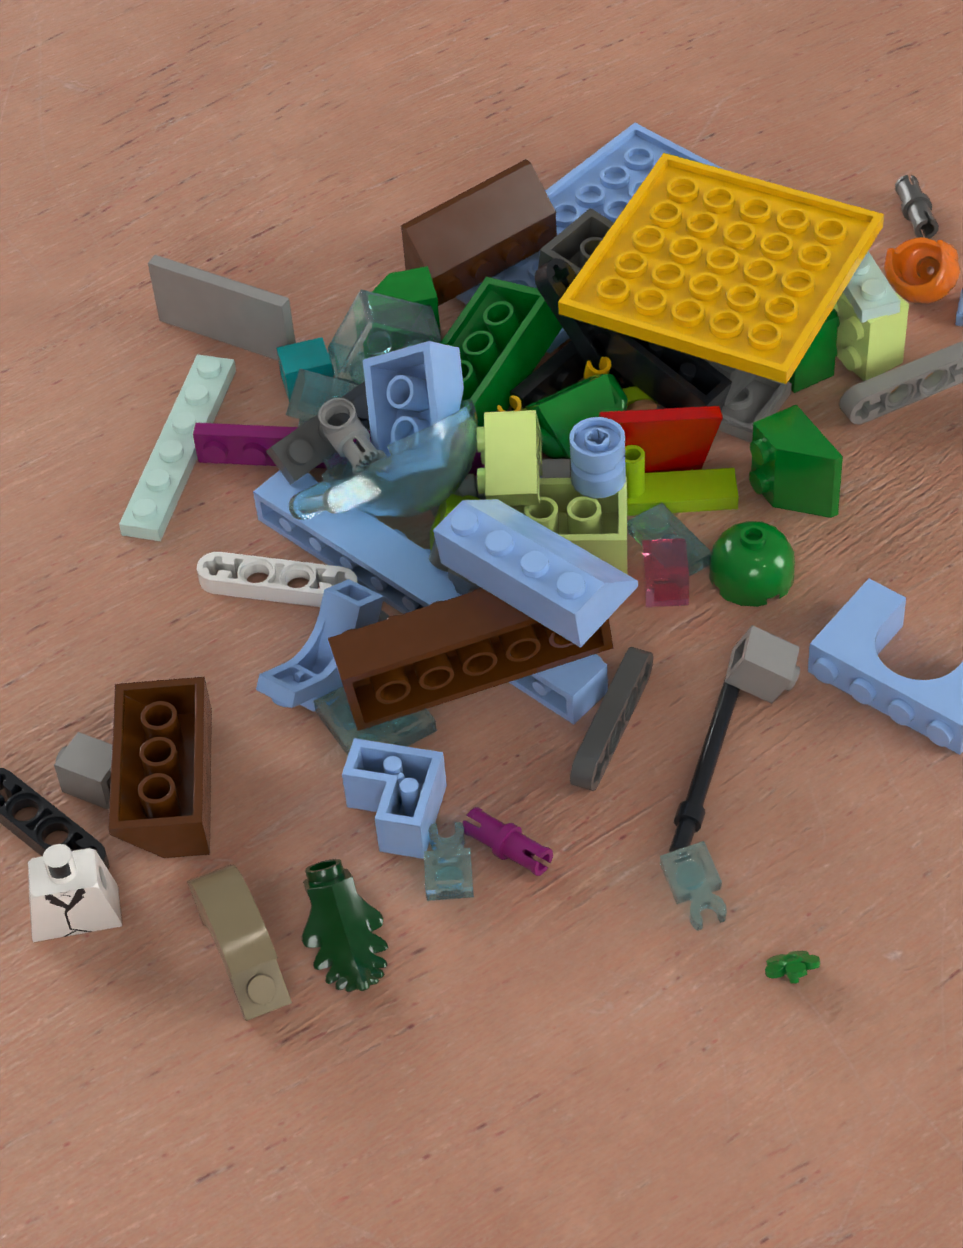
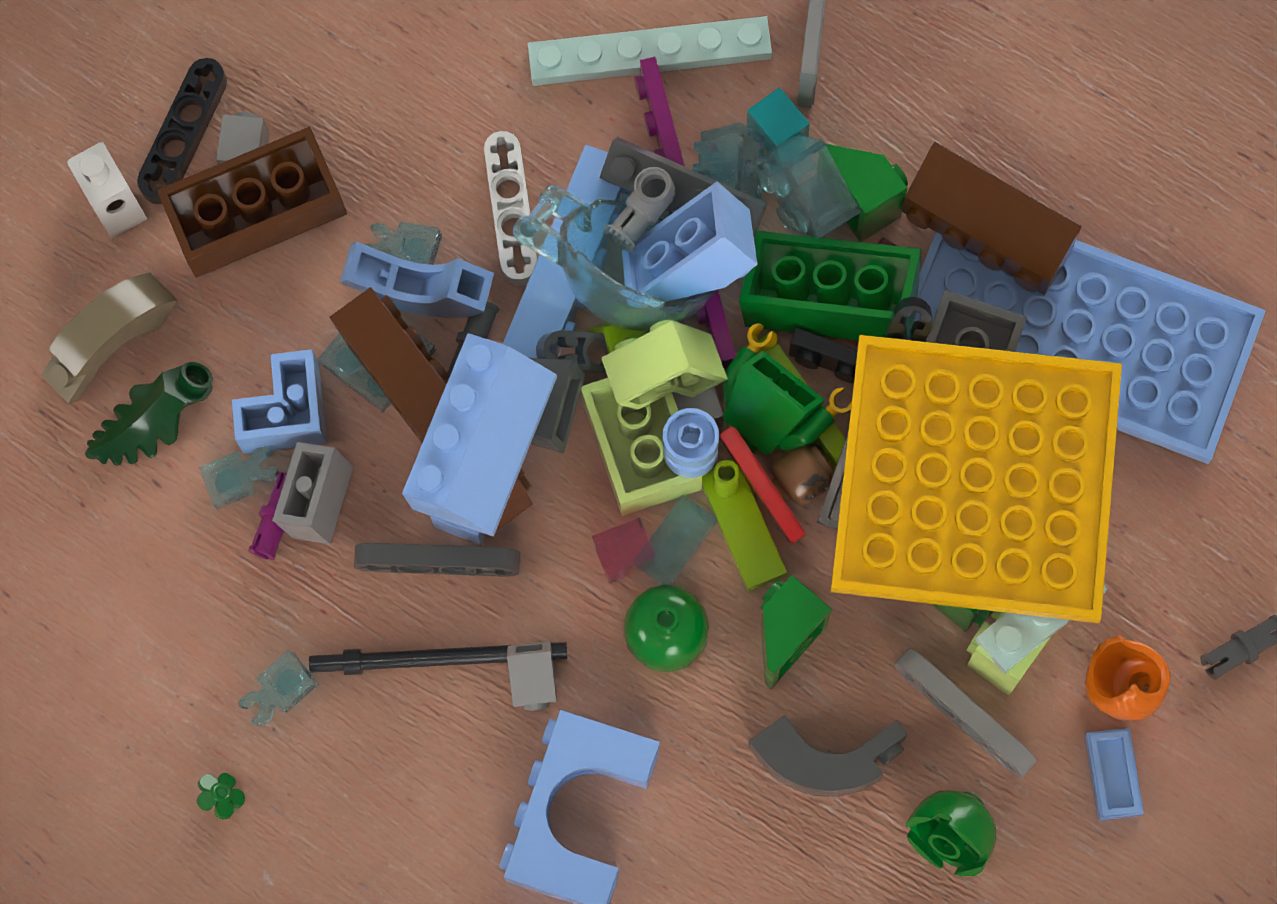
camera: 70 degrees right, 25 degrees up
(272, 651) = (409, 243): none -> clear light blue plate
(501, 789) = (313, 493): none -> light grey brick
(924, 498) = (821, 773): none -> dark grey arch

